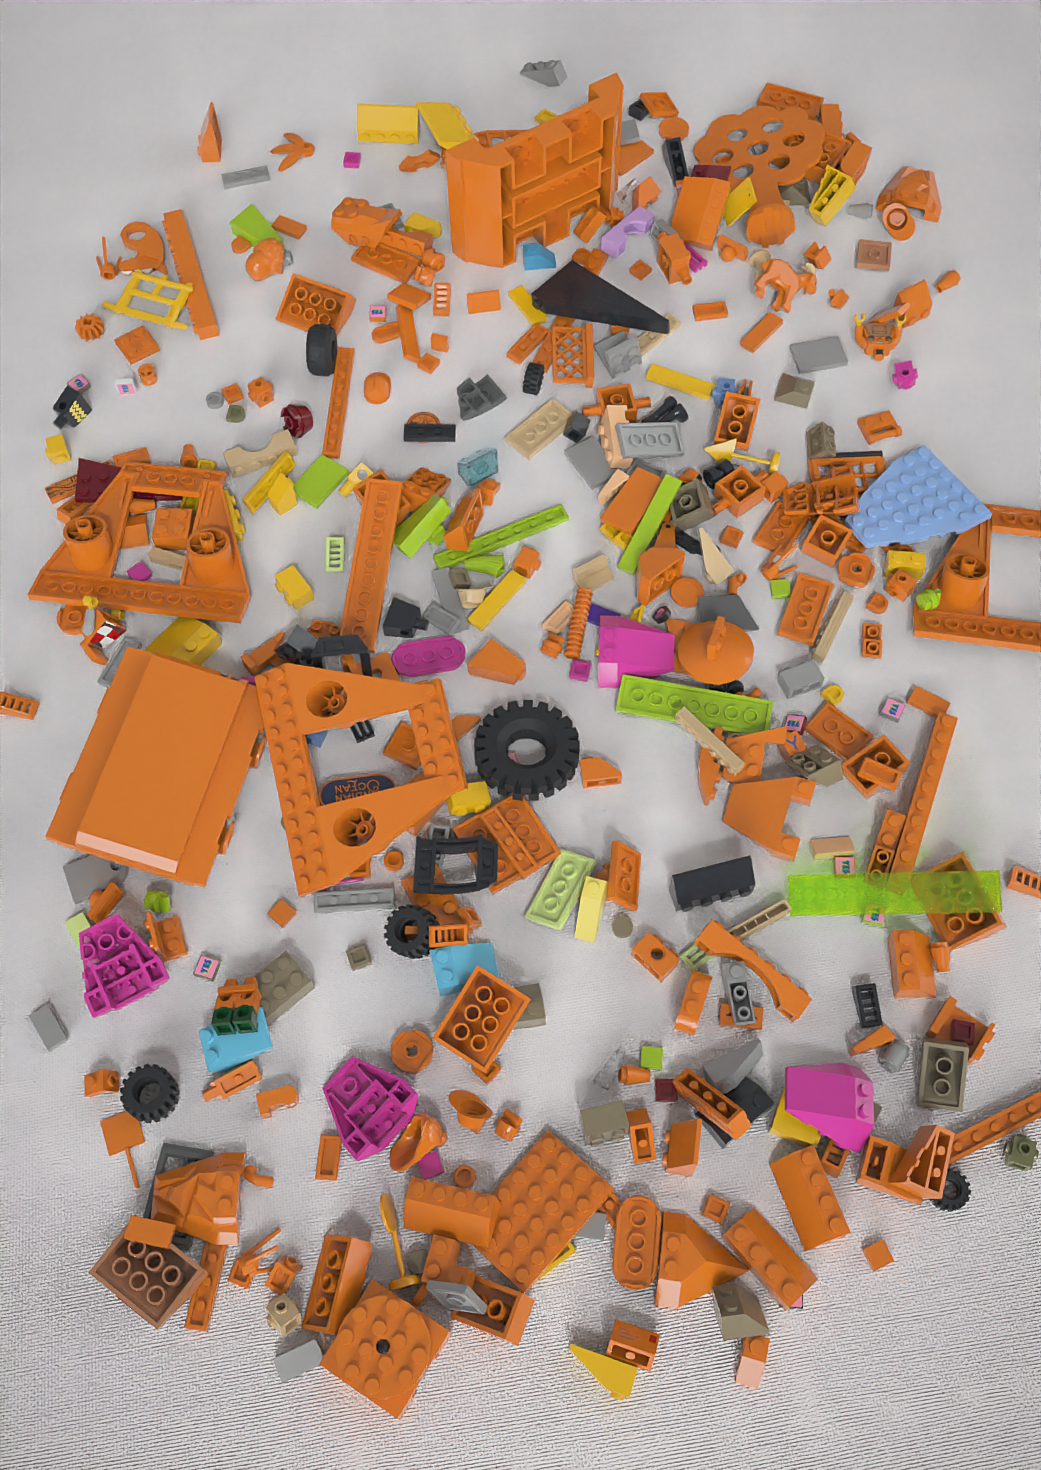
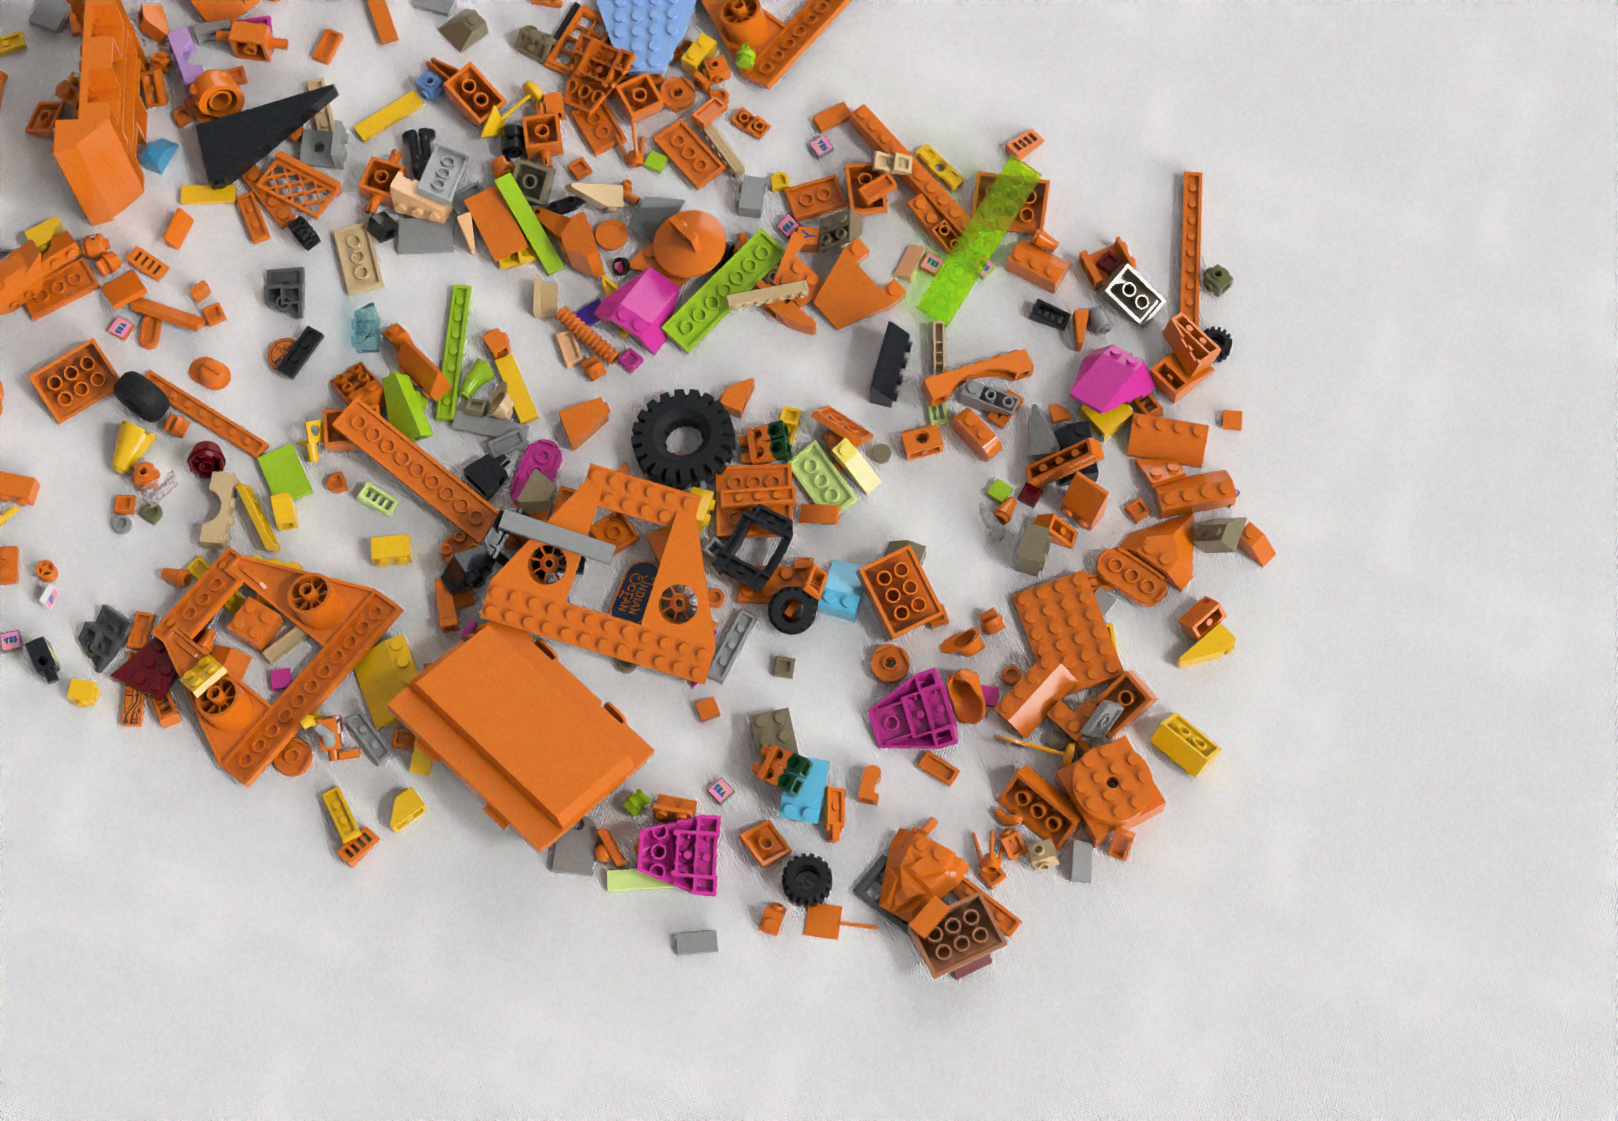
camera: 60 degrees left, 5 degrees up
(37, 678) = (341, 814): none -> yellow tile
(65, 722) = (406, 809): none -> yellow slope
(99, 511) = (203, 675): none -> yellow plate
(113, 439) = (105, 636): none -> dark grey slope
(170, 1035) = (765, 844): none -> orange slope
(248, 403) = (159, 489): none -> clear slope
(280, 368) = (130, 446): none -> yellow cone
(307, 1257) = (1008, 820): none -> orange arm
(317, 388) = (176, 425): none -> orange piece
(332, 1393) = (1121, 844): none -> orange tile
(333, 519) = (336, 483): none -> orange tile
(354, 692) = (557, 537): none -> light grey tile
(400, 661) = (537, 493): none -> dark tan slope
(483, 1405) = (1185, 744): none -> yellow slope
(524, 904) = (819, 514): none -> orange slope
(567, 821) = (766, 444): none -> hips
(597, 832) = (791, 418): none -> yellow slope
(609, 258) = (217, 93): none -> orange piece
(769, 1071) = (1058, 413): none -> orange tile
(771, 1209) = (1159, 472): none -> orange wing
(855, 601) = (709, 112): none -> orange tile
(880, 581) = (701, 82): none -> orange tile
(914, 773) = (894, 164): none -> tan slope
(950, 809) = (932, 159): none -> yellow piece

